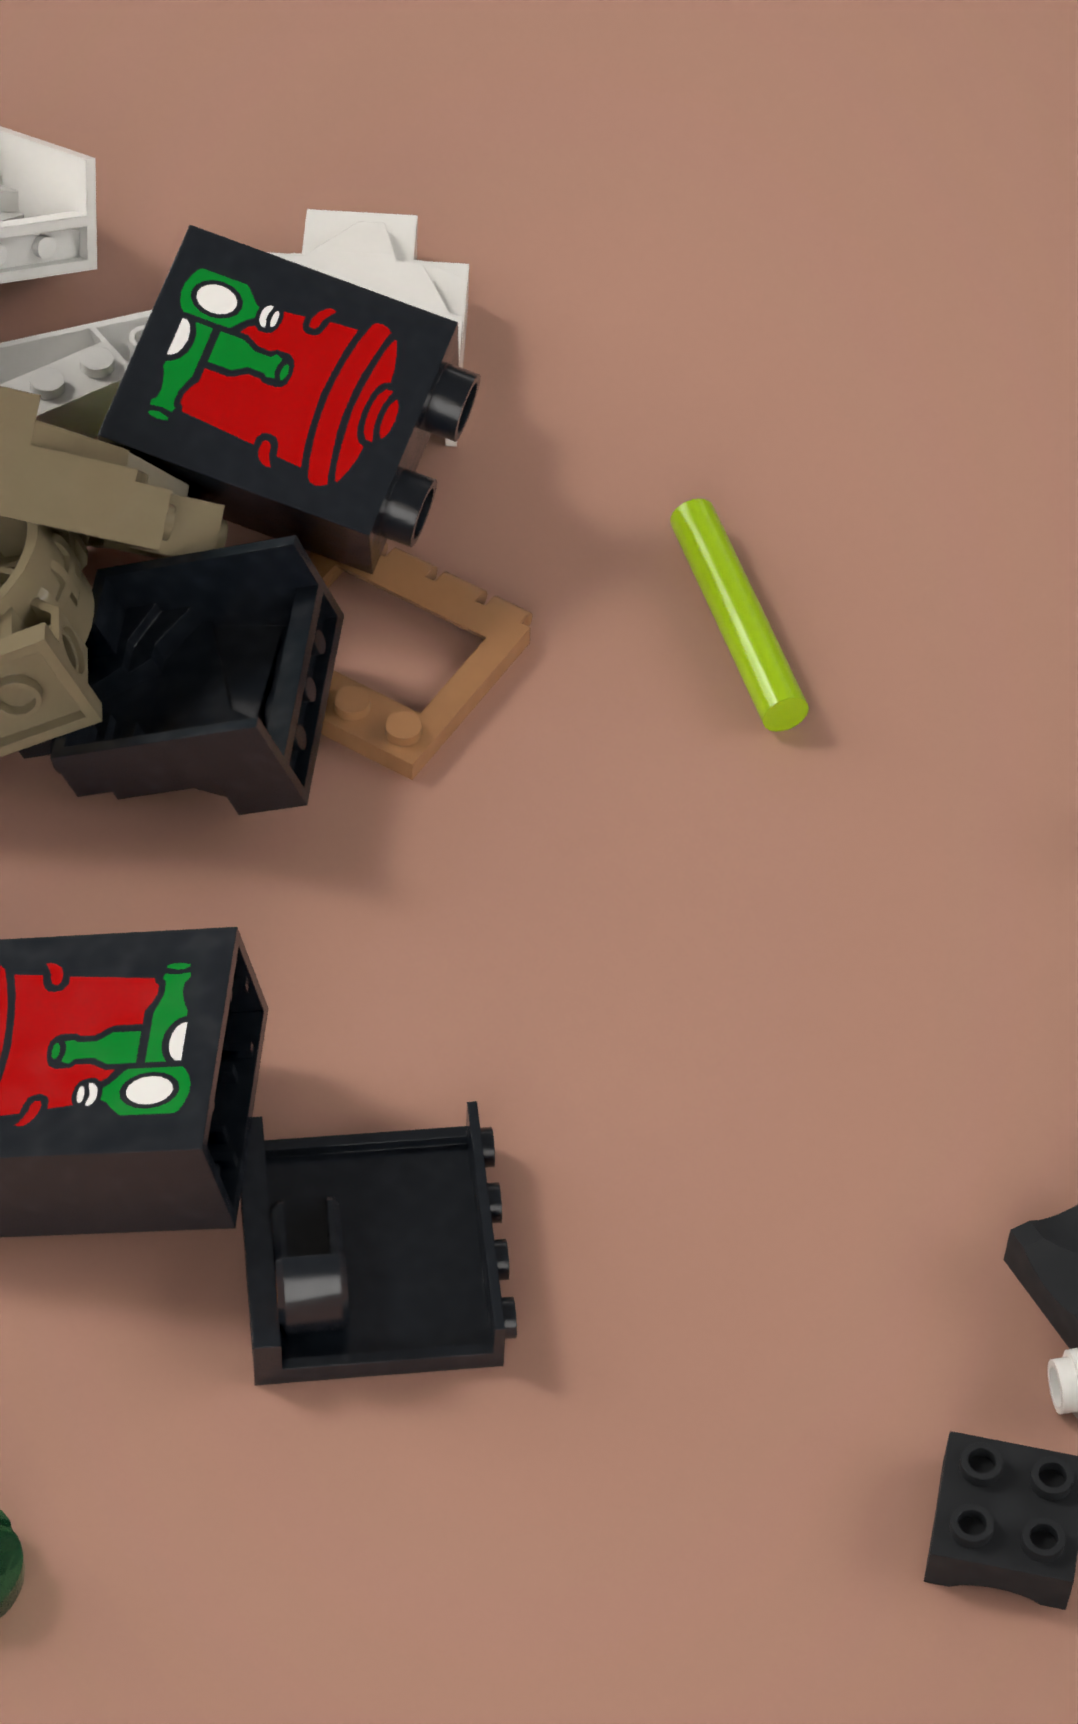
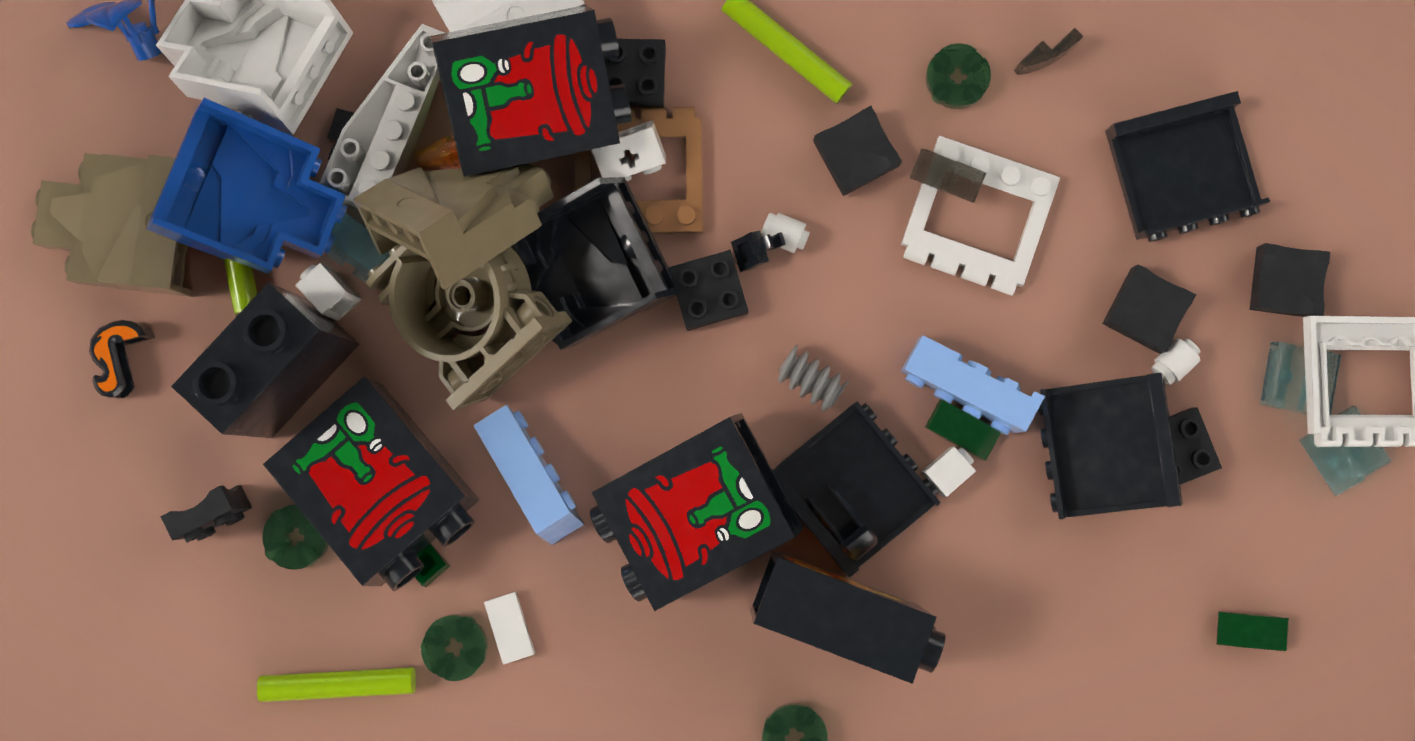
camera: 25 degrees left, 35 degrees up
(191, 1349) = (846, 618): none -> black brick
(356, 842) = (709, 290): none -> black brick
(413, 588) = (640, 140): none -> white brick
(426, 1044) = (811, 379): none -> light grey piece
(473, 822) = (753, 248): none -> black plate
(478, 521) = (640, 70): none -> black brick
(544, 832) = (792, 230): none -> white brick
(561, 1310) = (949, 470): none -> white brick
(634, 1269) = (962, 429): none -> dark green slope
(700, 1211) = (970, 386): none -> light blue wedge
(747, 790) = (857, 151): none -> black brick
(838, 1052) = (978, 264): none -> white hinge
(873, 891) = (947, 175): none -> clear smoke slope
(878, 1426) = (1110, 446): none -> black panel
(989, 816) = (945, 90): none -> clear green plate

